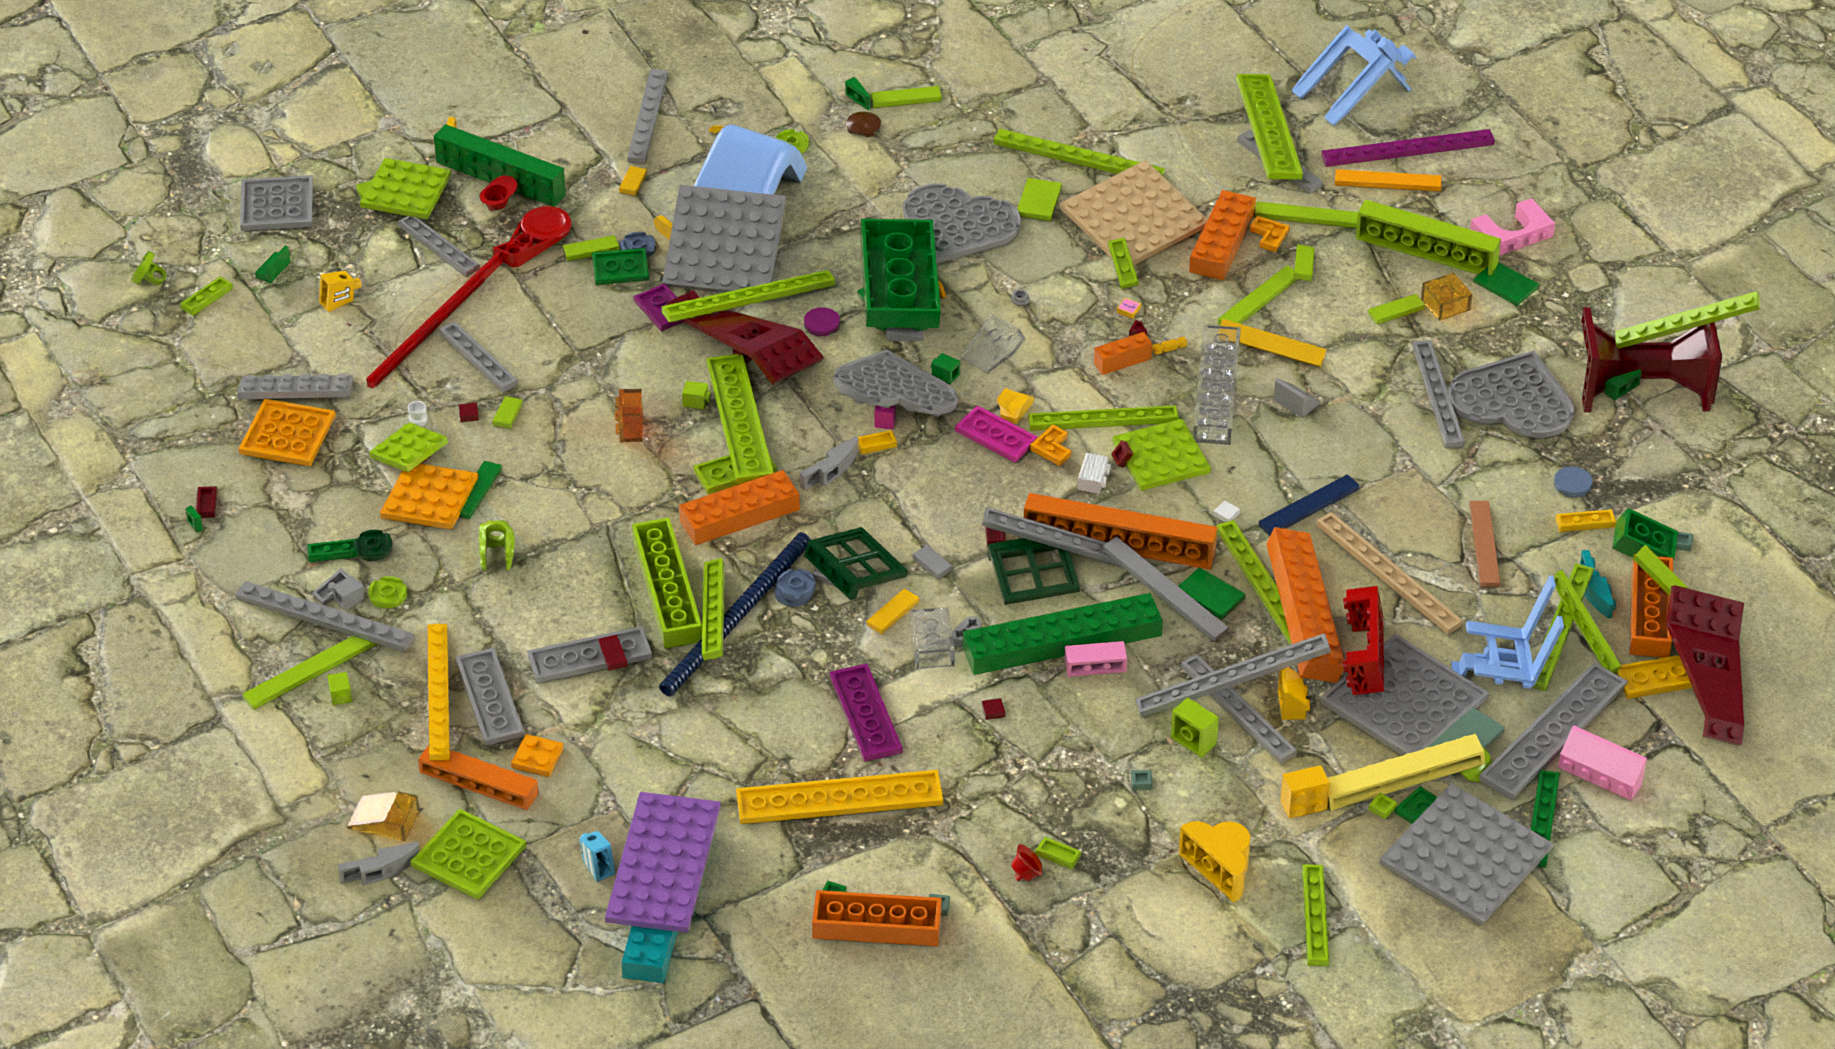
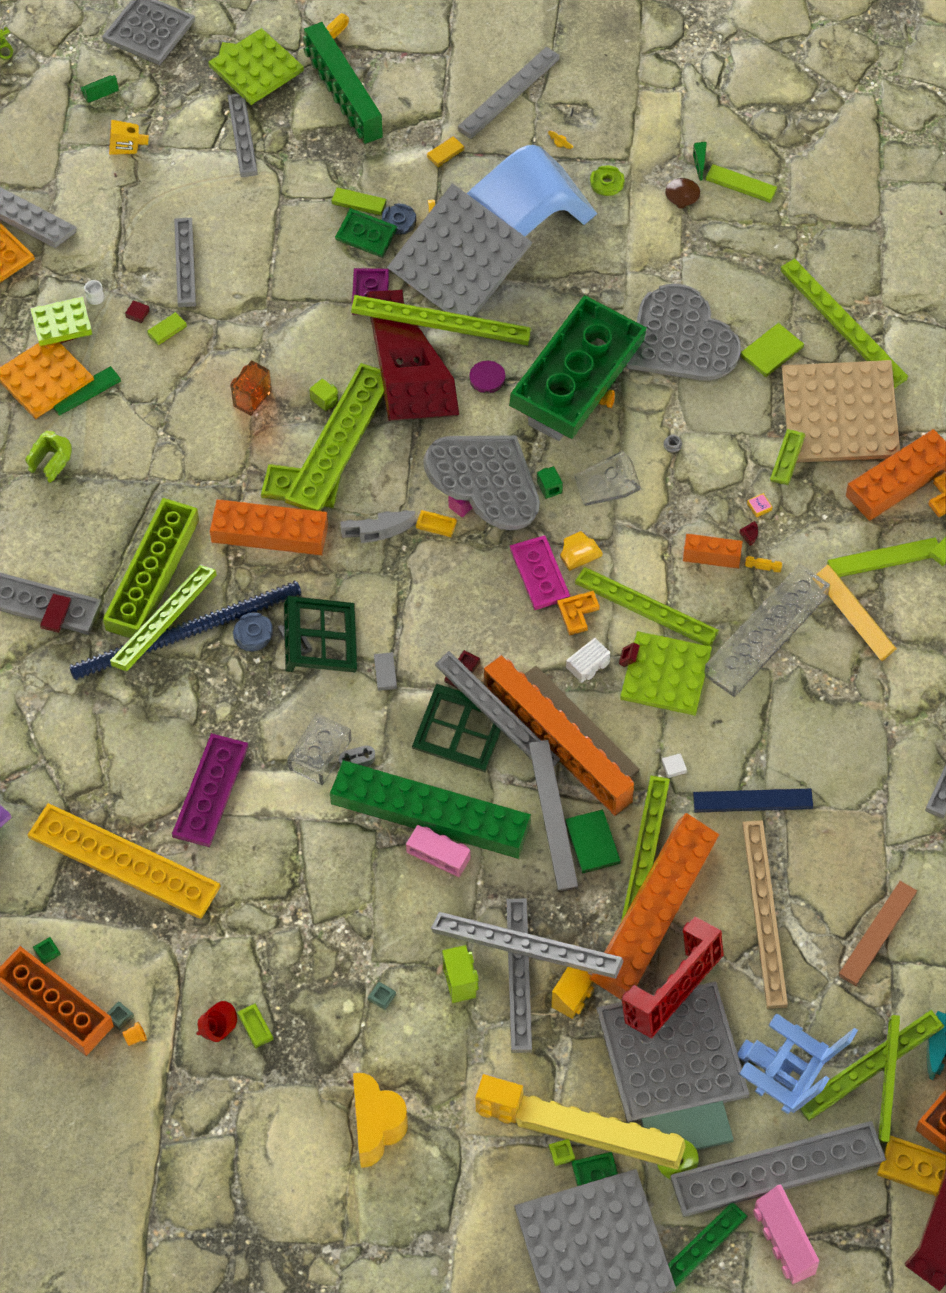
camera: 35 degrees right, 15 degrees up
(206, 295) = (29, 90): lime tile -> none
(498, 192) = (321, 109): red piece -> none
(540, 225) = (333, 161): red piece -> none
(892, 611) = (314, 701): yellow tile -> none
(966, 907) = (134, 1034): none -> light orange piece
(993, 708) = (317, 848): dark red tile -> none
(1294, 398) = (831, 681): light grey slope -> none
(1315, 915) = (416, 1225): lime tile -> none

